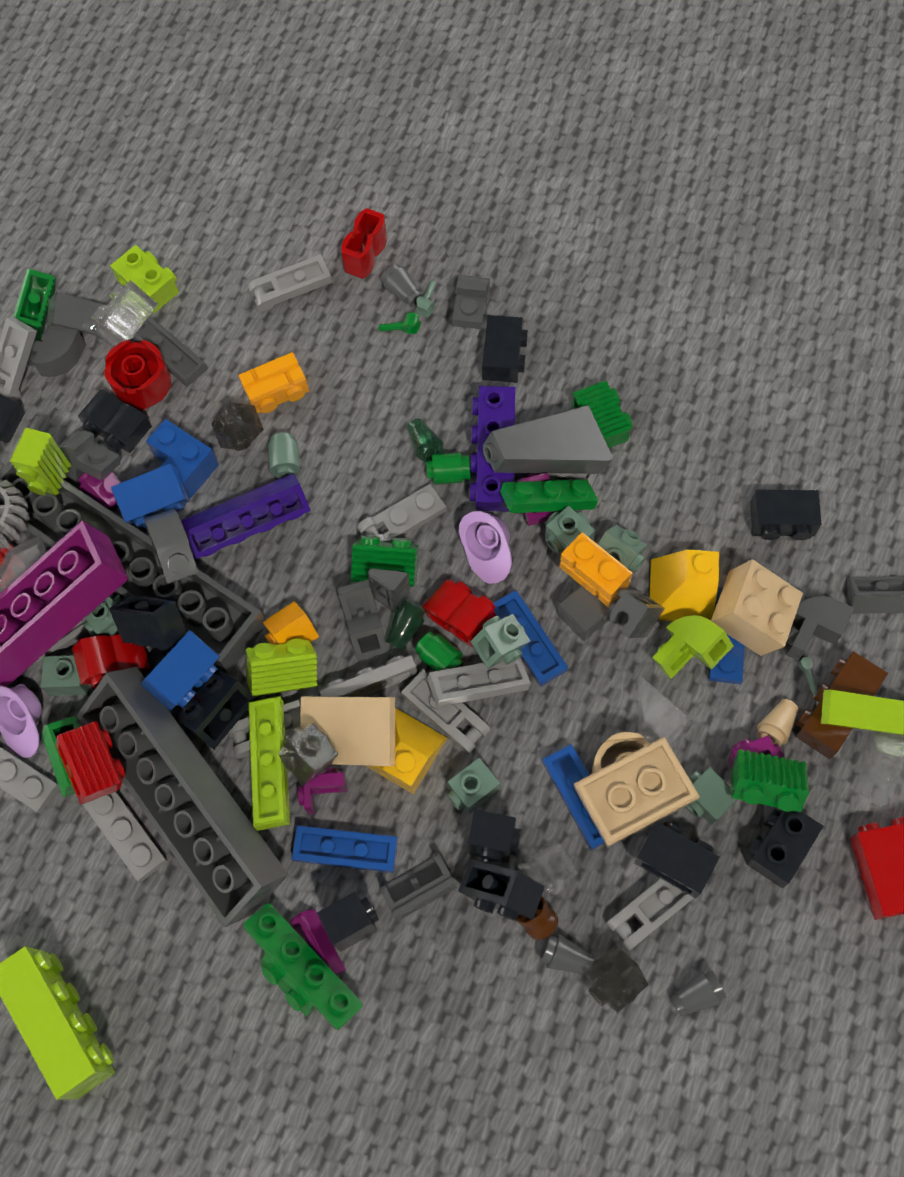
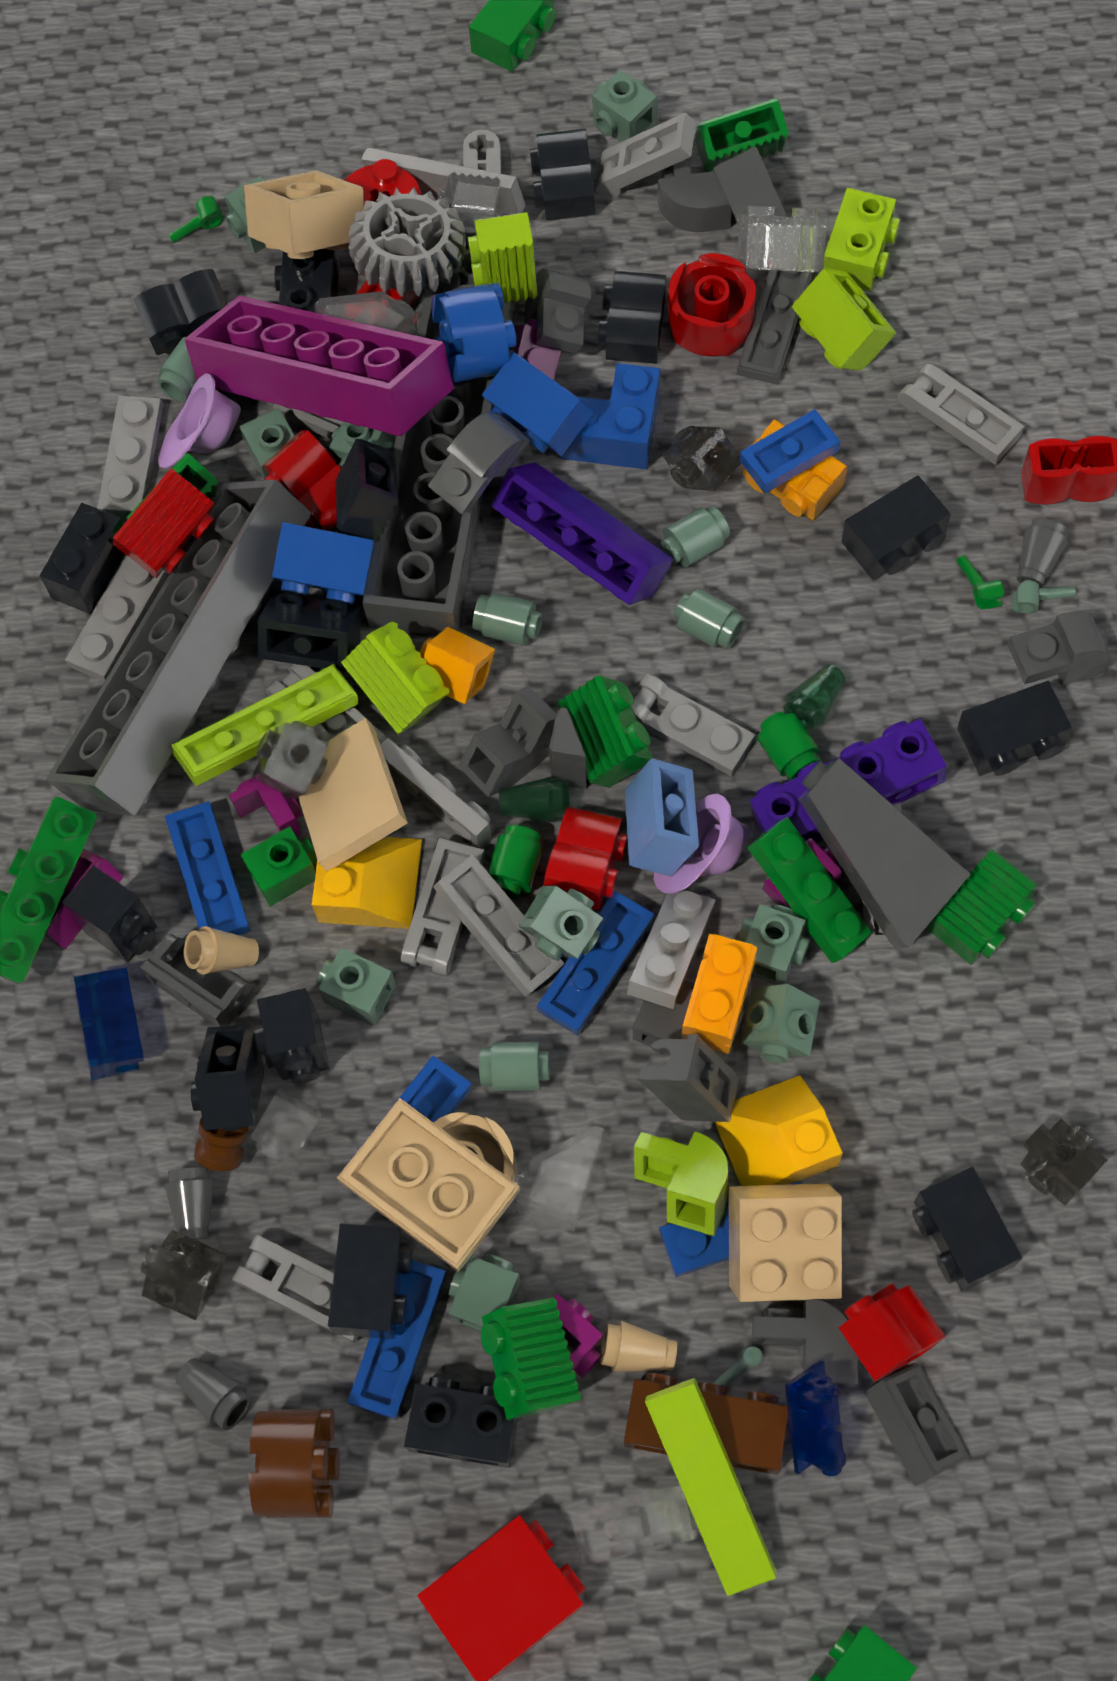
camera: 65 degrees right, 0 degrees up
(71, 833) = (83, 559): none -> black piece
(78, 499) = (474, 331): none -> blue brick
(194, 311) = (842, 320): none -> lime brick
(268, 373) = (789, 451): none -> blue plate
(274, 586) = (507, 618): none -> sand green brick
(342, 473) = (708, 619): none -> sand green brick
(345, 347) = (896, 528): none -> black brick
(366, 798) = (281, 865): none -> green brick
(407, 863) = (217, 950): none -> tan cone
(417, 959) = (108, 1023): none -> clear blue hinge
(460, 555) = (661, 817): none -> medium blue brick
(546, 588) = (671, 948): none -> light grey plate
(571, 714) = (514, 1066): none -> sand green brick
(729, 875) = (391, 1363): none -> blue plate
(769, 446) = (1071, 1172): none -> clear smoke brick
(772, 957) = (293, 1463): none -> reddish brown brick
(832, 576) = (890, 1330): none -> red brick
(869, 639) = (812, 1421): none -> clear blue hinge

